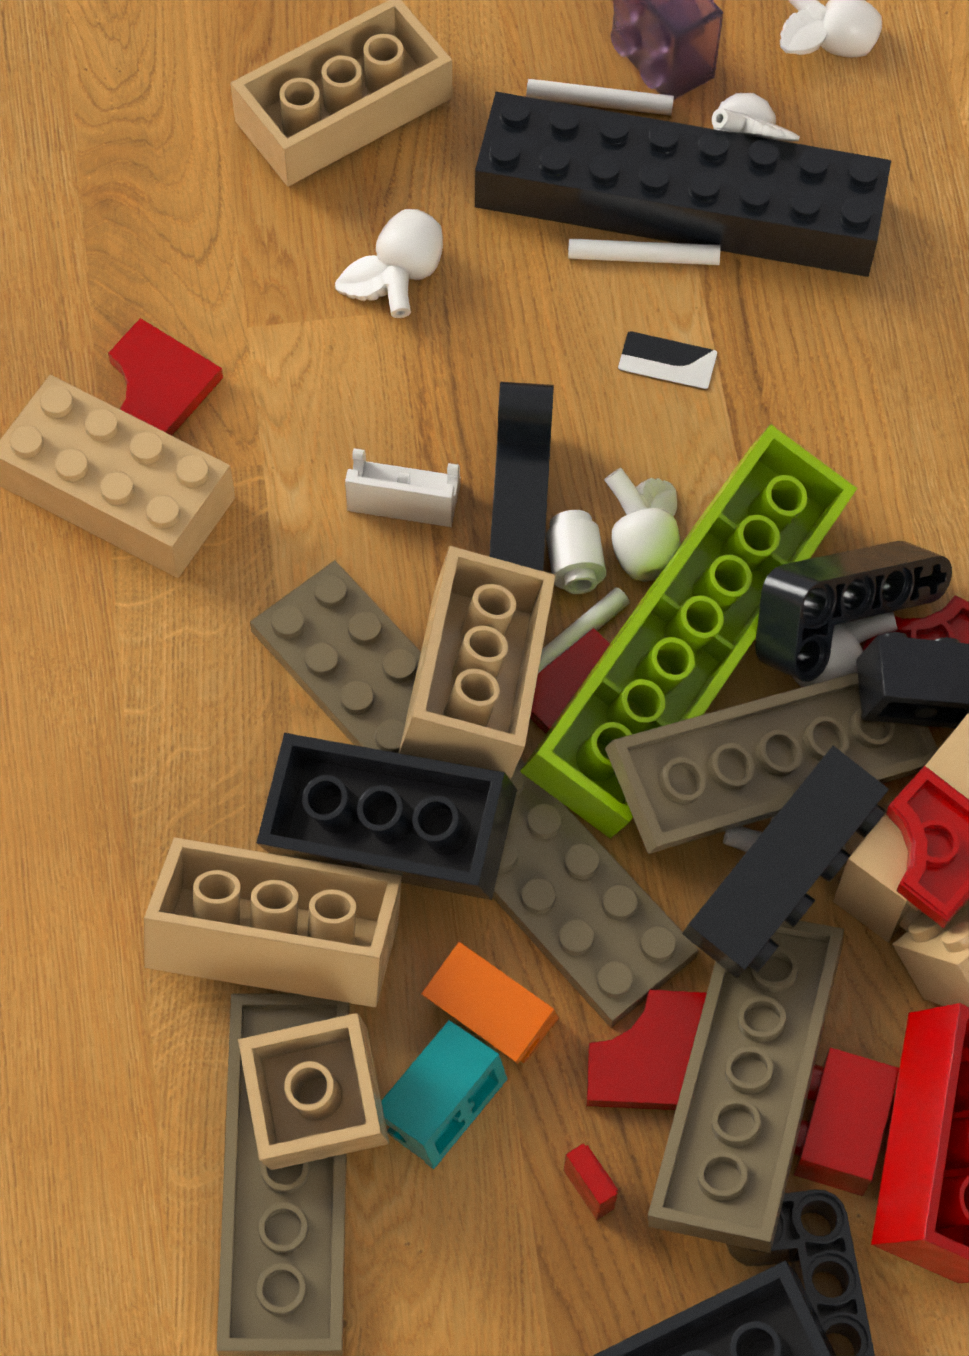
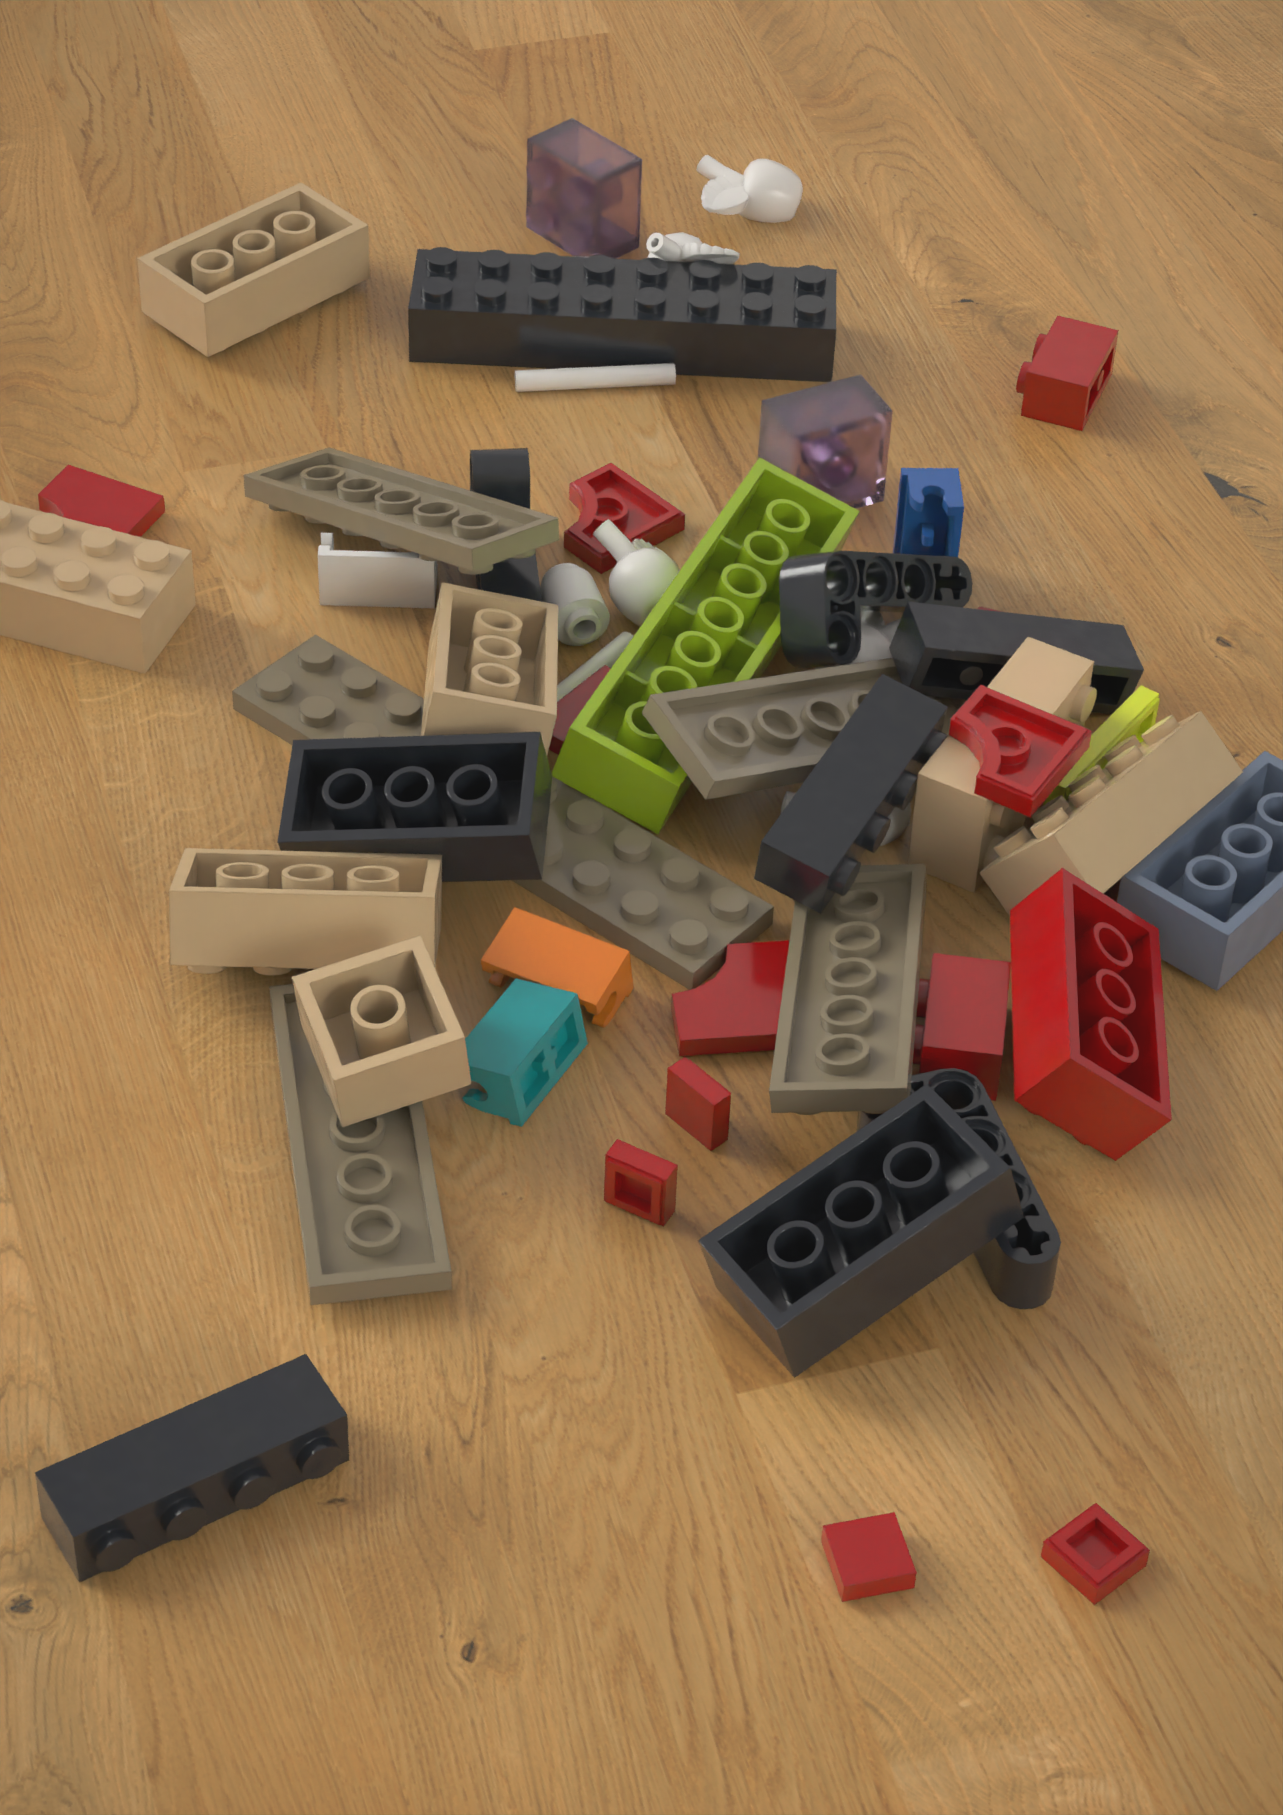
camera: 10 degrees left, 20 degrees down
(405, 250) = (344, 389): white piece -> none
(431, 435) = (403, 509): none -> dark tan plate
(523, 1268) = (640, 1182): none -> red tile
(637, 435) = (627, 503): none -> red tile
(667, 360) = (639, 459): sticker -> none
(840, 393) = (830, 438): none -> brick
(922, 503) = (929, 512): none -> blue hinge

